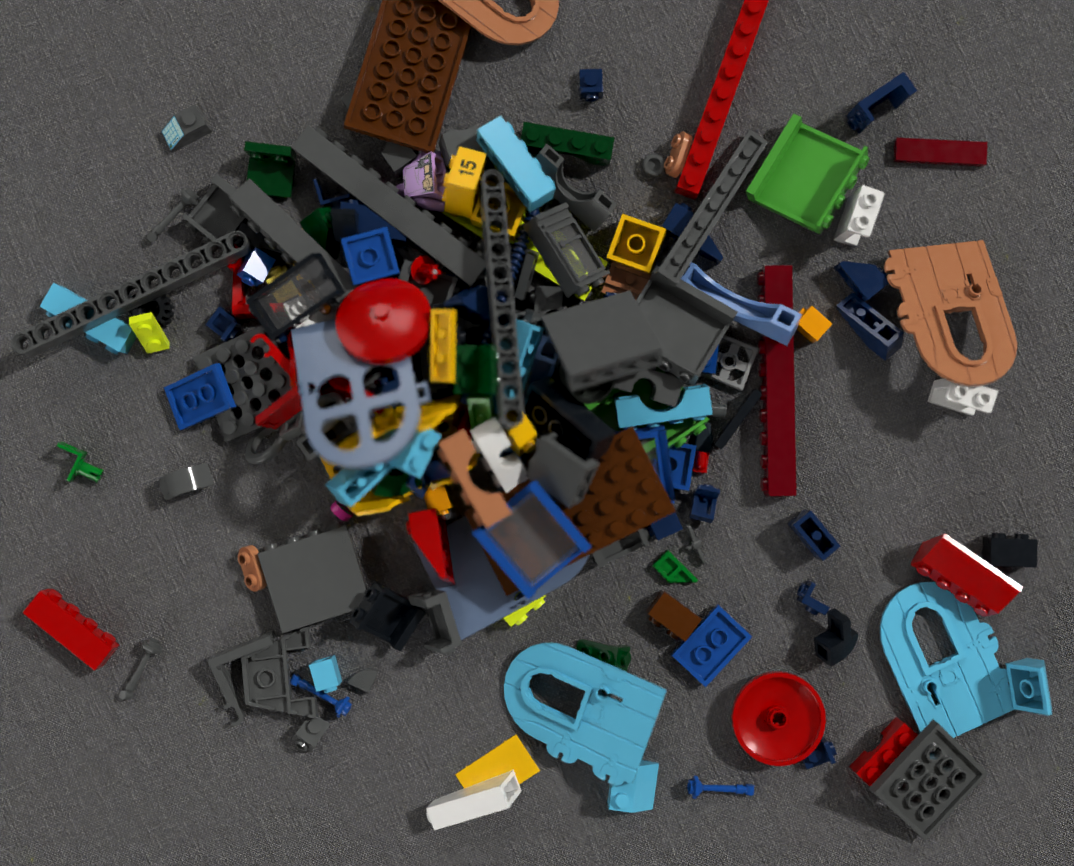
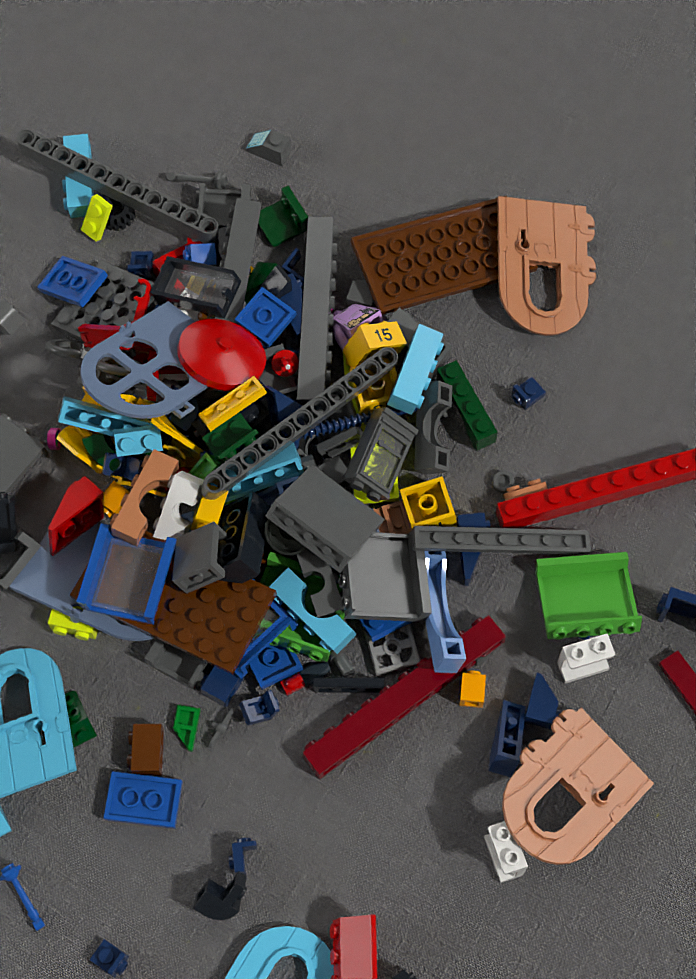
camera: 60 degrees right, 20 degrees down
(778, 718) = (117, 898): red dish -> none
(814, 534) = (297, 814): dark blue brick -> none

